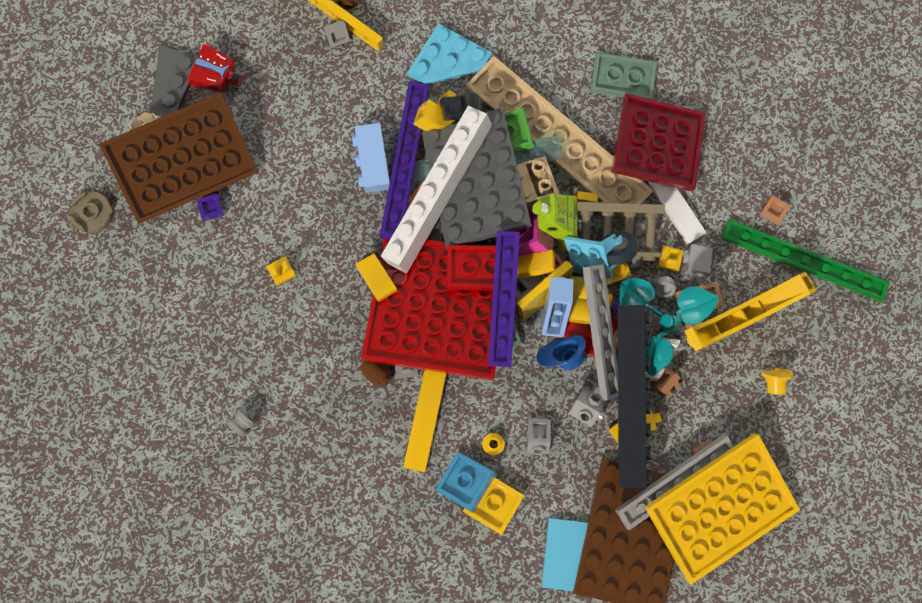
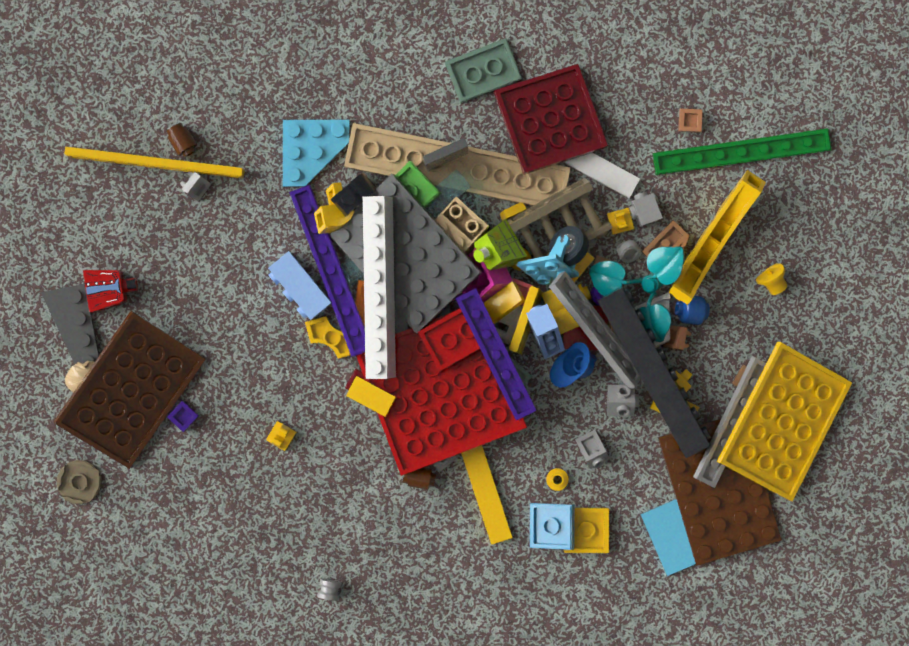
camera: 20 degrees left, 10 degrees up
(367, 206) = (323, 332): none -> yellow tile
(557, 113) = (445, 154): none -> dark grey tile
(692, 366) = (694, 312): none -> blue head

